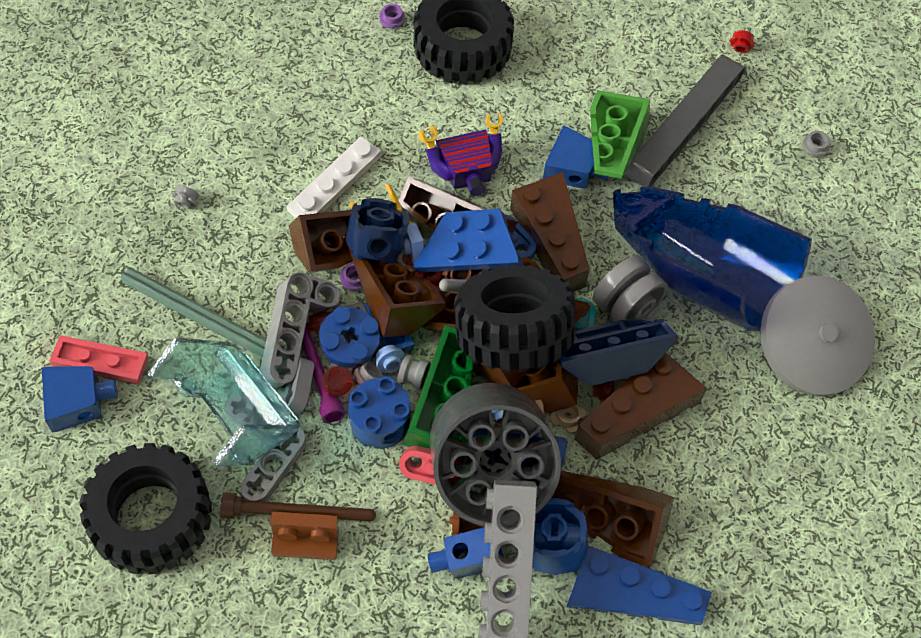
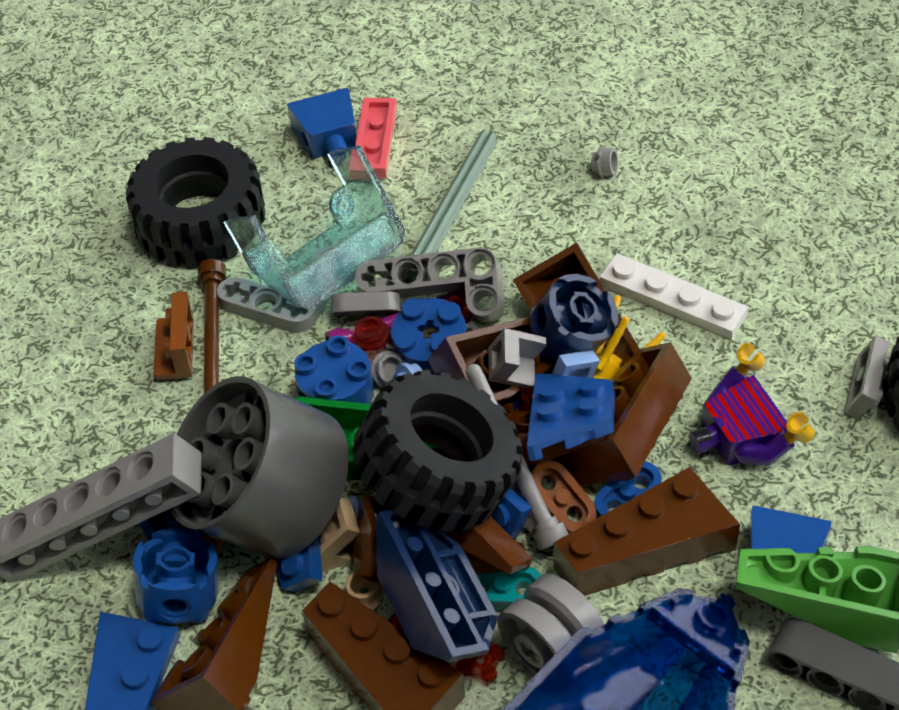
camera: 90 degrees right, 10 degrees down
(411, 273) = (513, 358): none -> light grey panel
(441, 84) = (867, 376): none -> light grey plate

